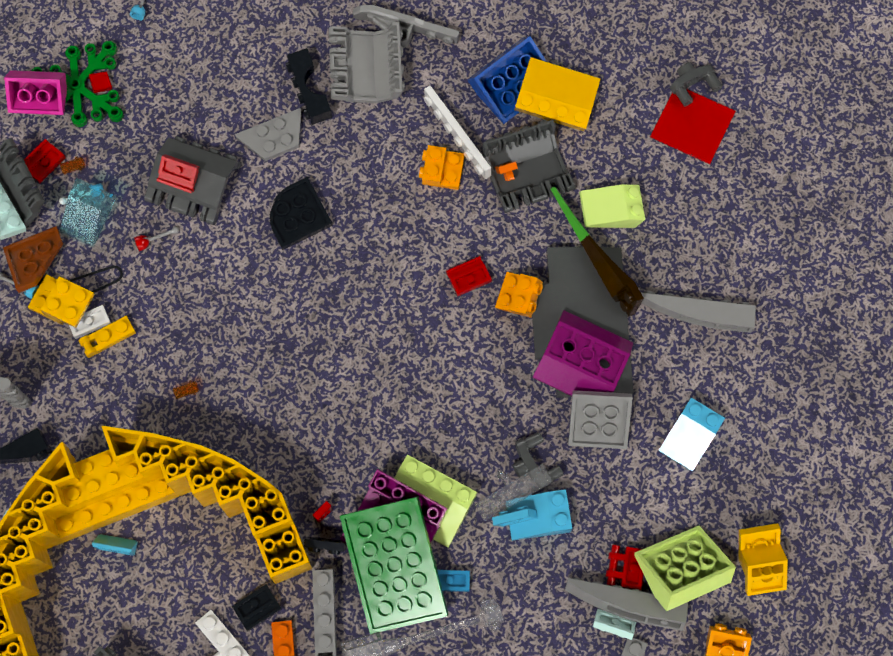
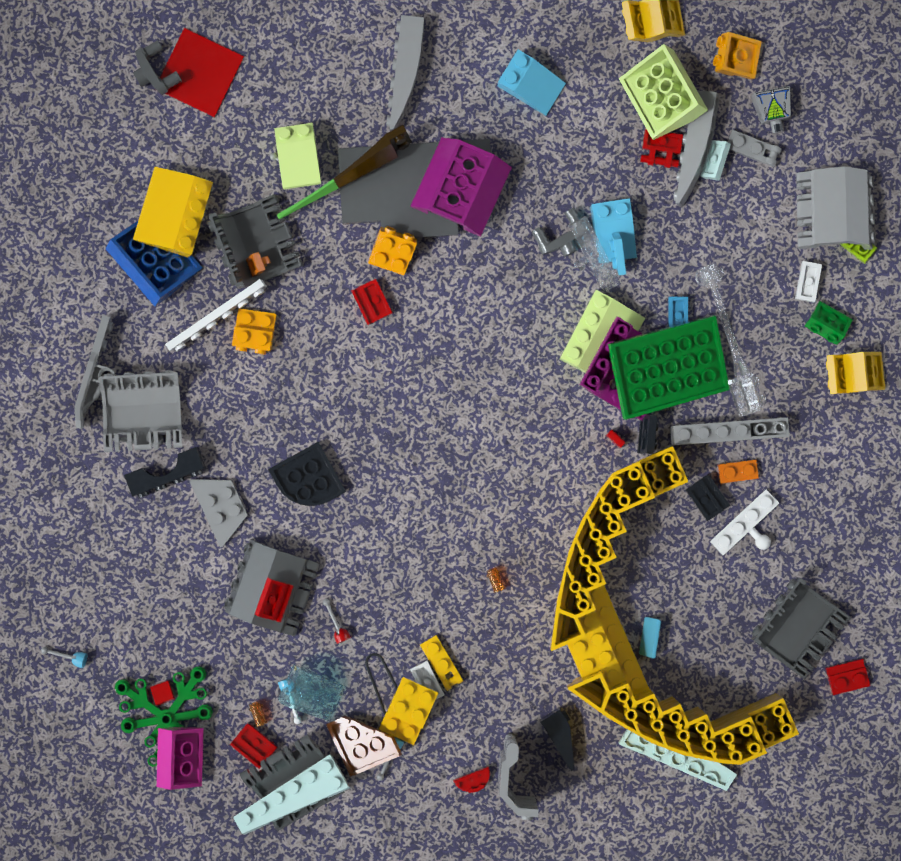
camera: 90 degrees left, 15 degrees up
(600, 419) = (521, 170): light grey plate -> none

